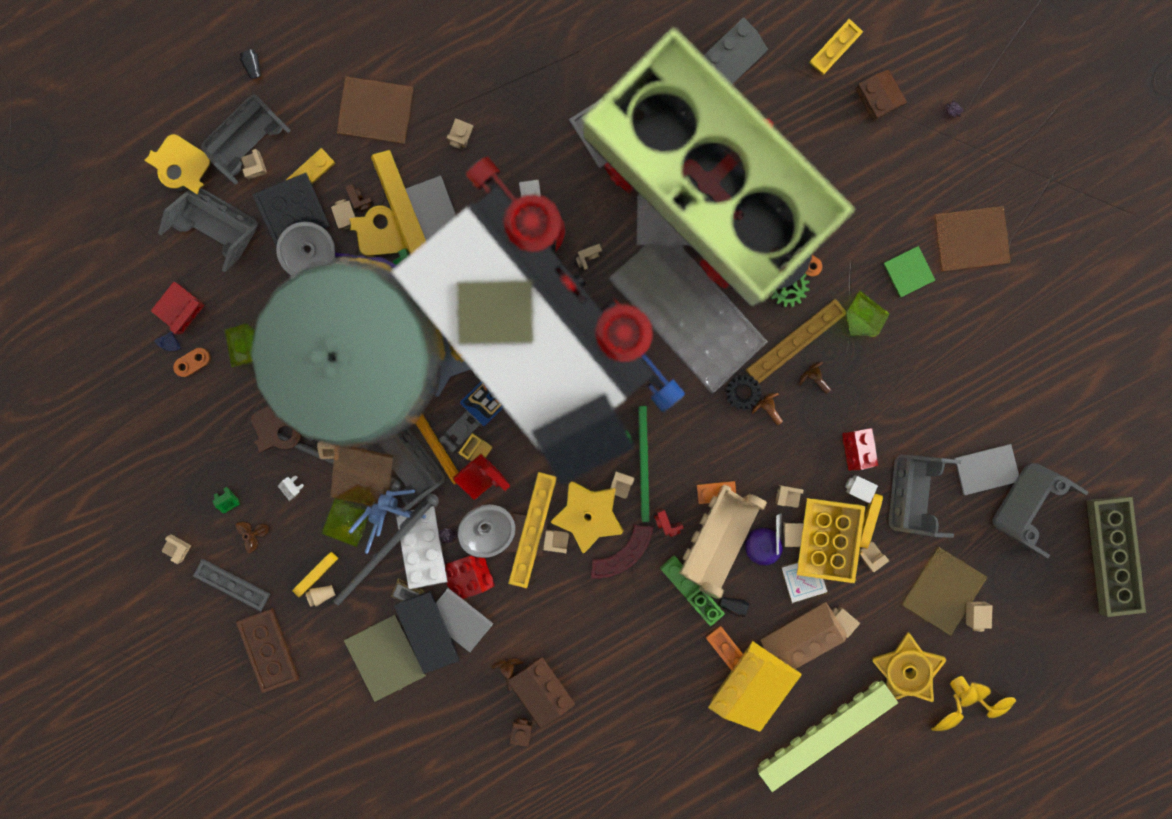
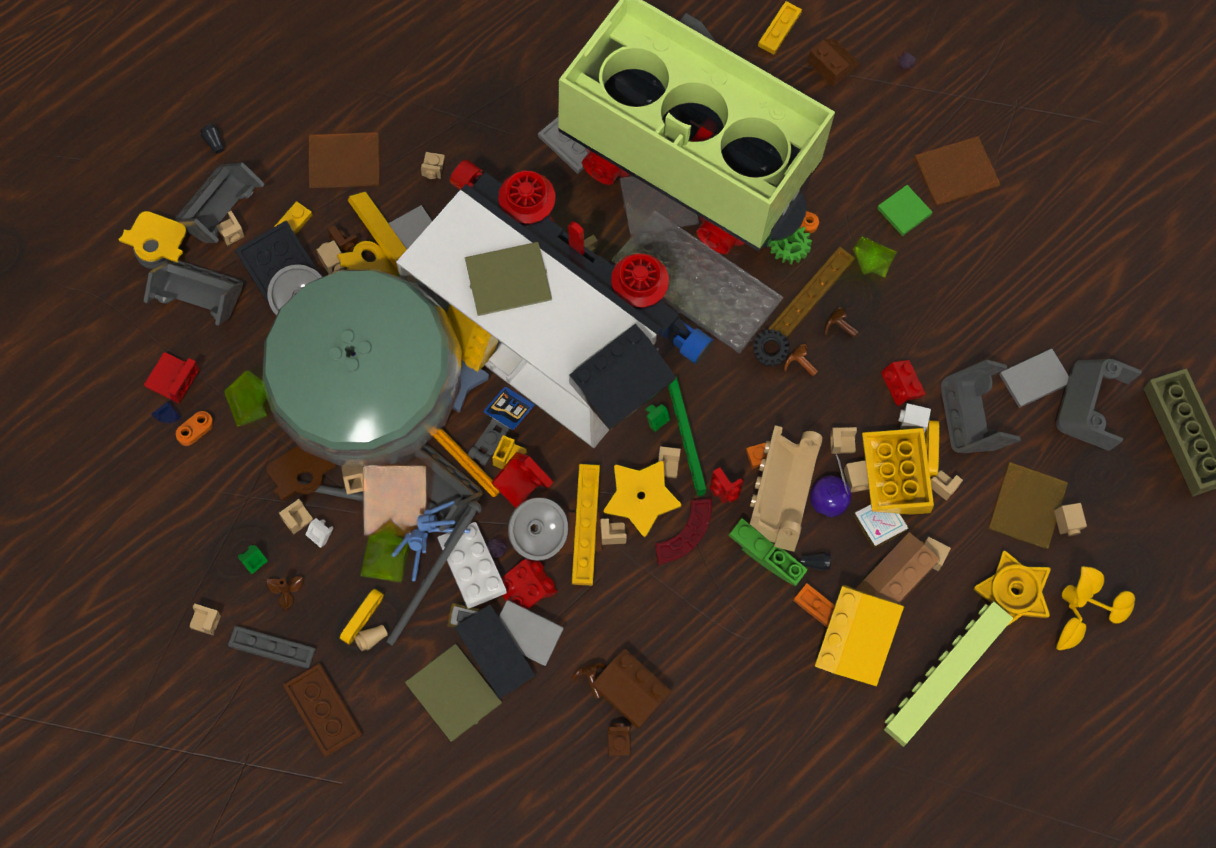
camera: 15 degrees left, 20 degrees down
(271, 469) = (295, 516): none -> tan panel

